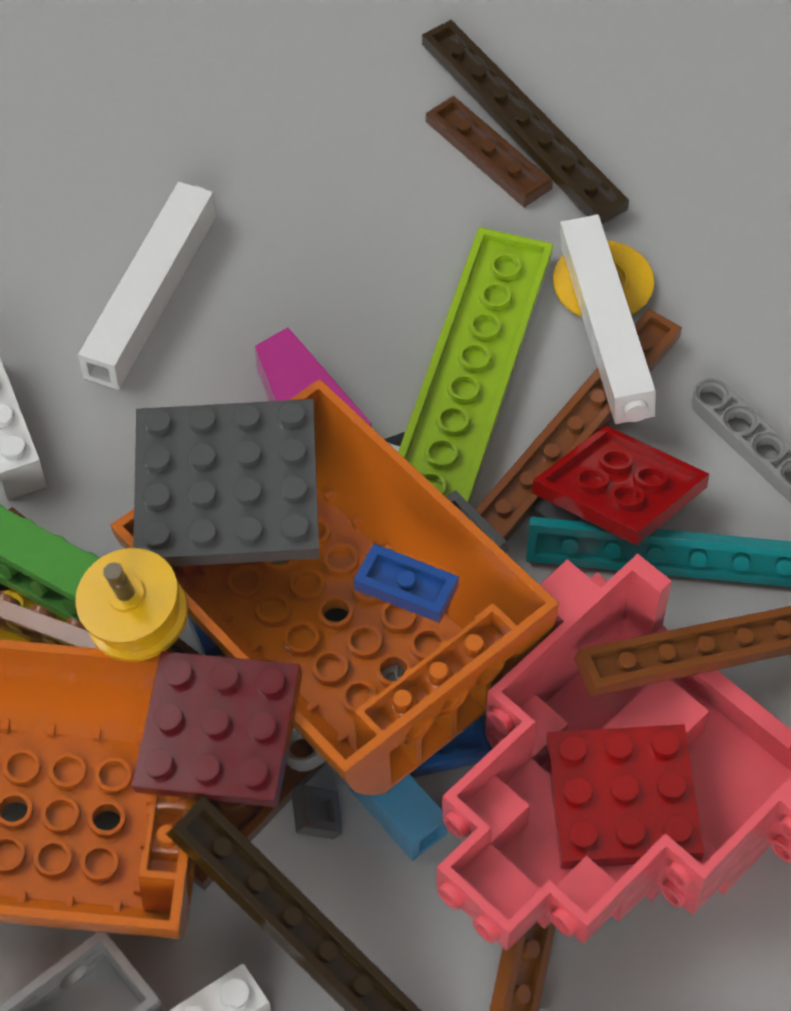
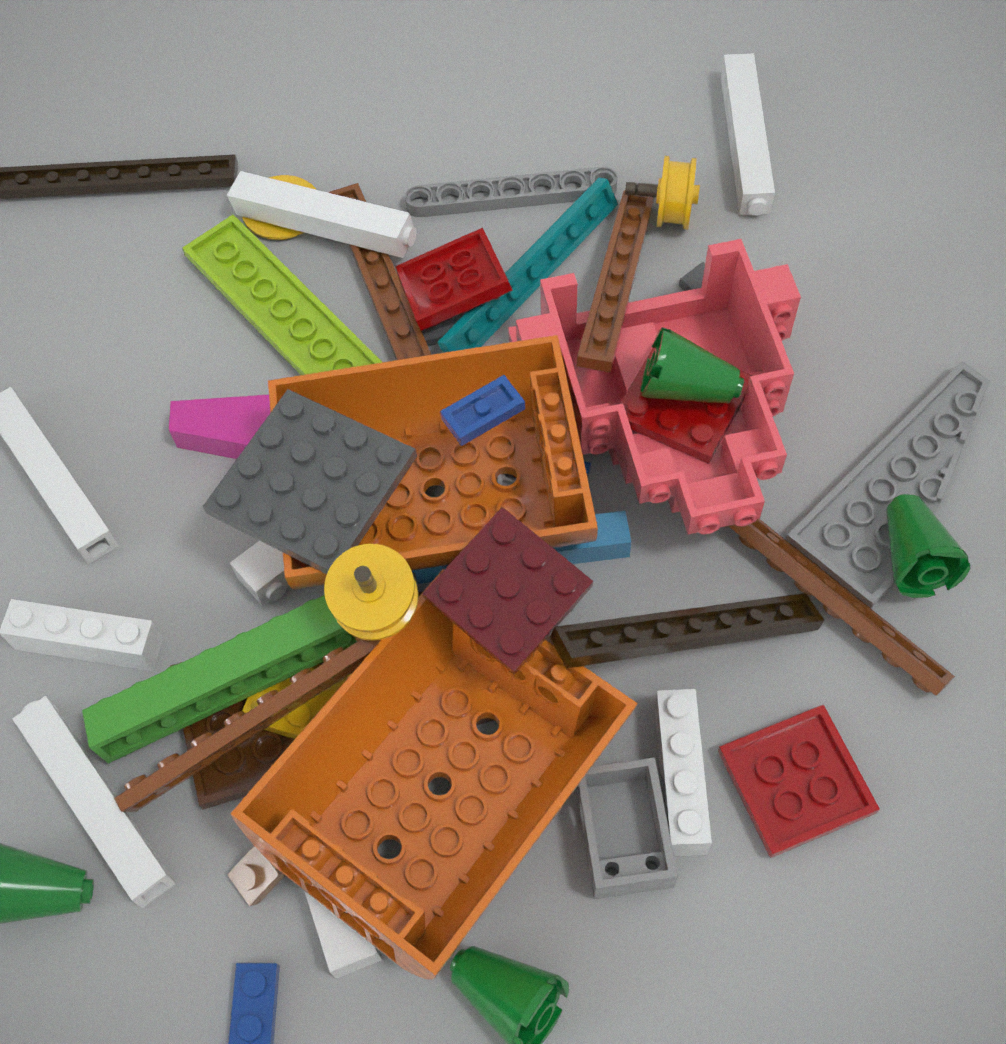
camera: 55 degrees left, 5 degrees up
(489, 151) = (119, 211): reddish brown tile -> none
(633, 769) = (688, 372): none -> green cone

